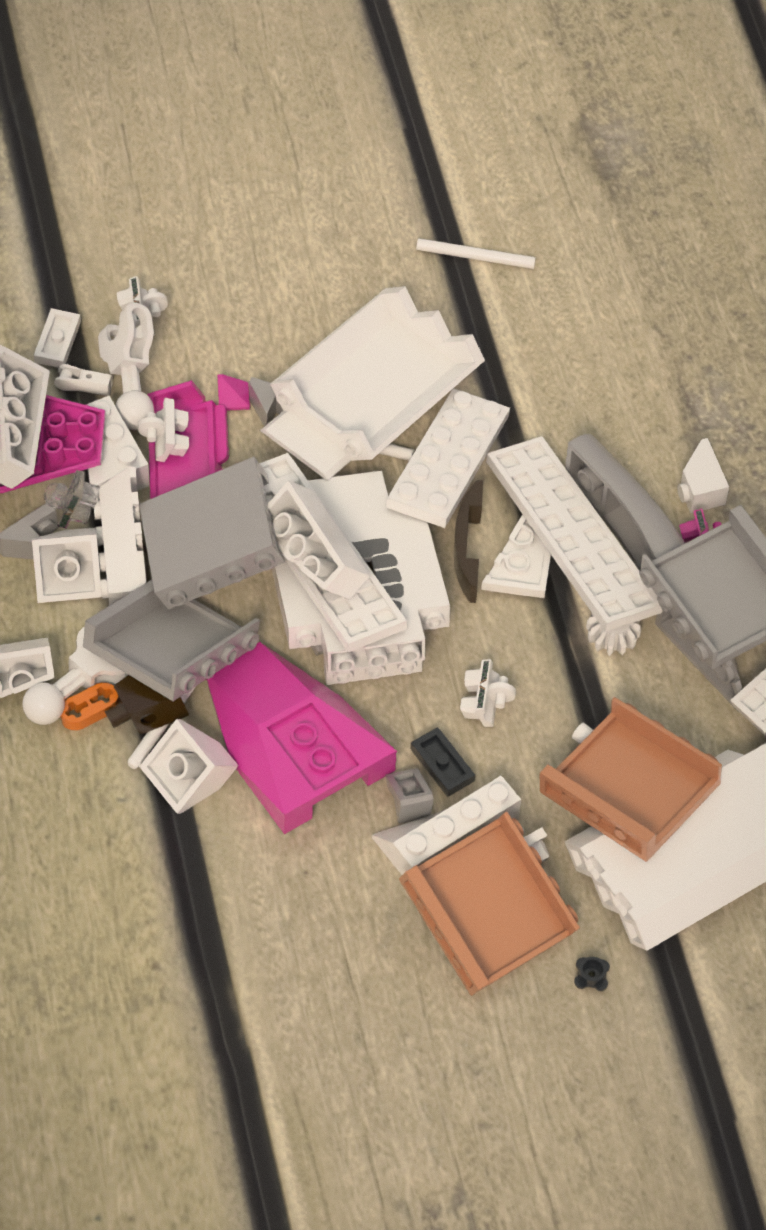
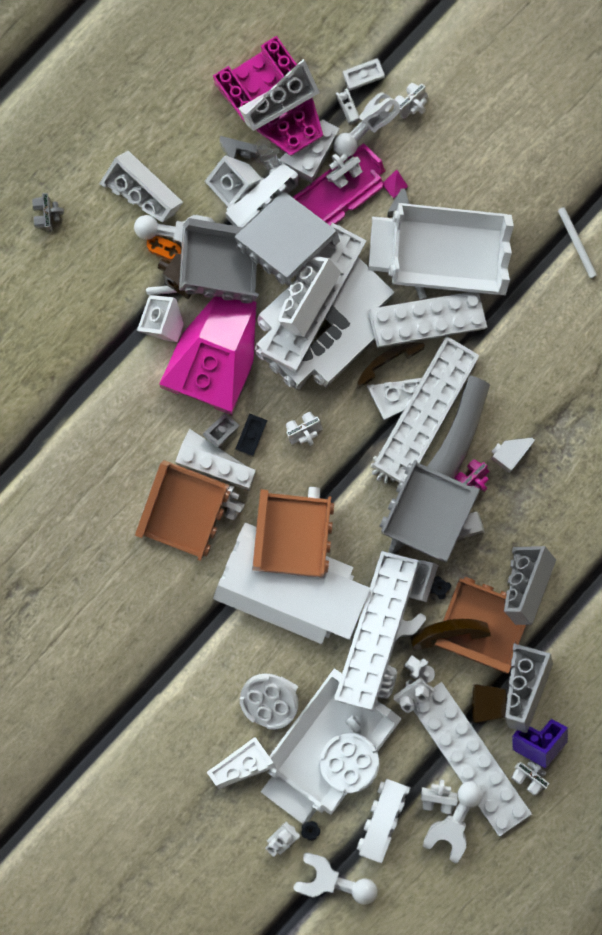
camera: 55 degrees right, 25 degrees up
(592, 964) = (186, 585): black plate -> none

